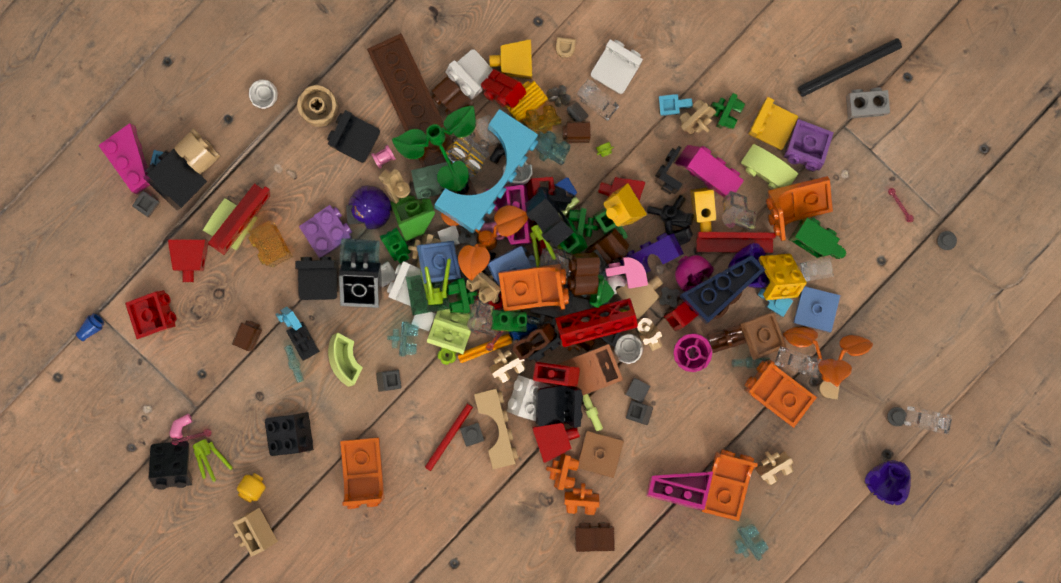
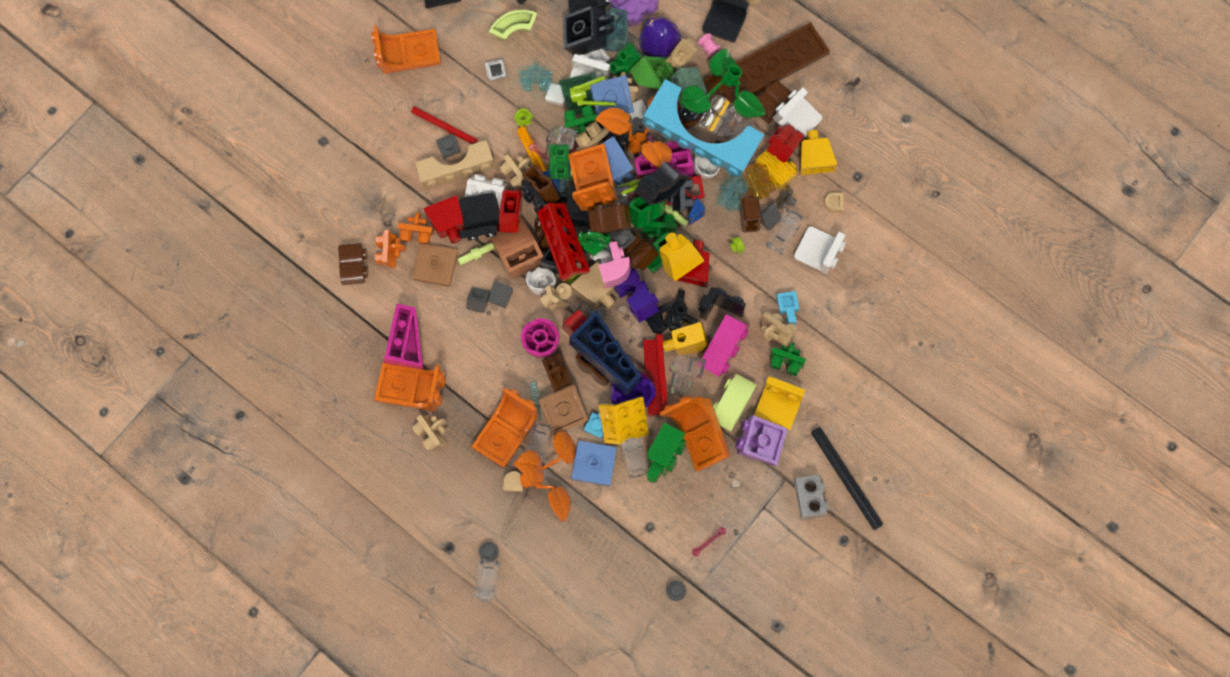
camera: 90 degrees right, 15 degrees down
(450, 331) = (544, 116): yellowish green slope -> none
(692, 271) = (624, 332): dark pink cylinder -> none
(756, 549) = (350, 411): clear light blue hips -> none
(890, 482) = (422, 545): dark purple hair -> none

